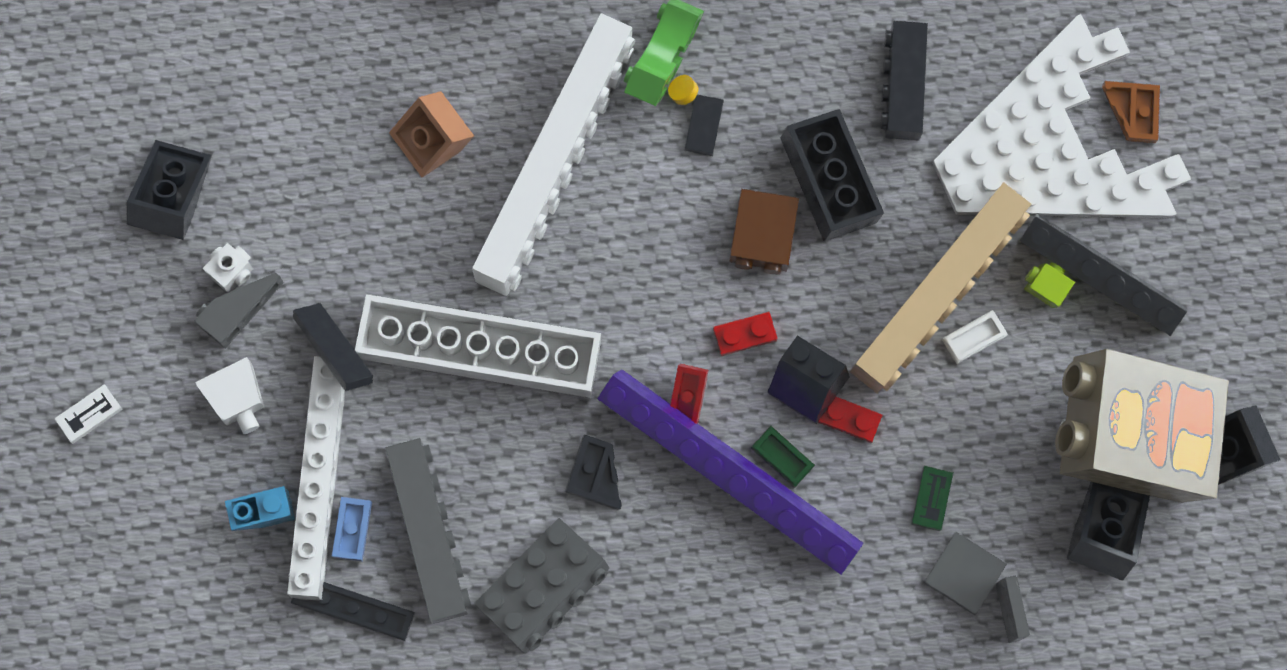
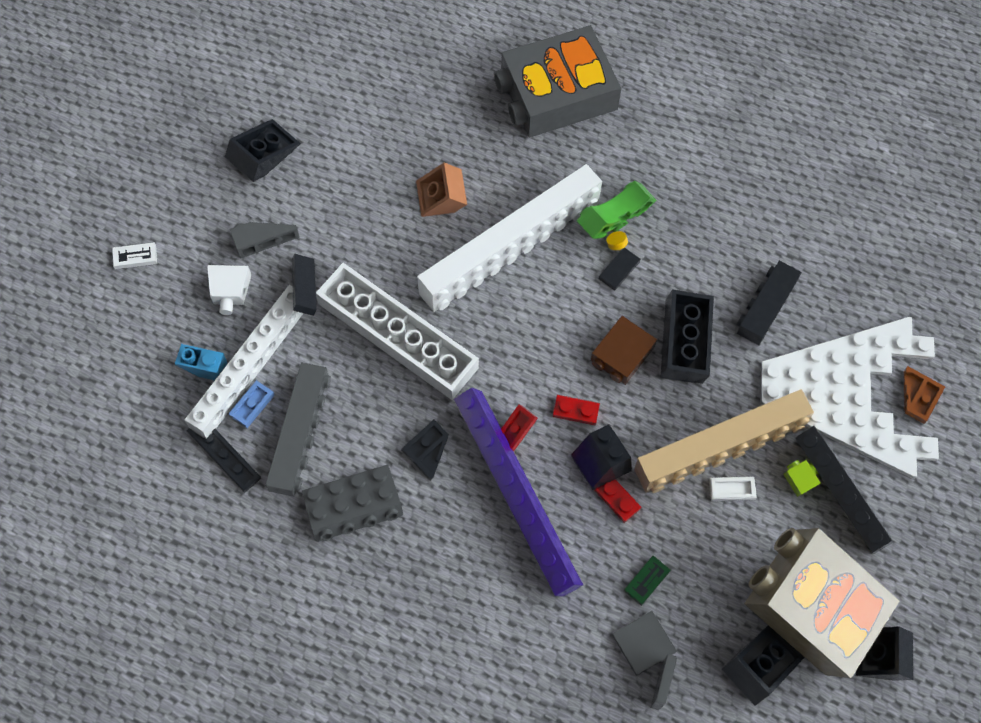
camera: 30 degrees right, 10 degrees down
(229, 267) = (270, 209): white brick -> none
(782, 456) = (558, 501): dark green tile -> none

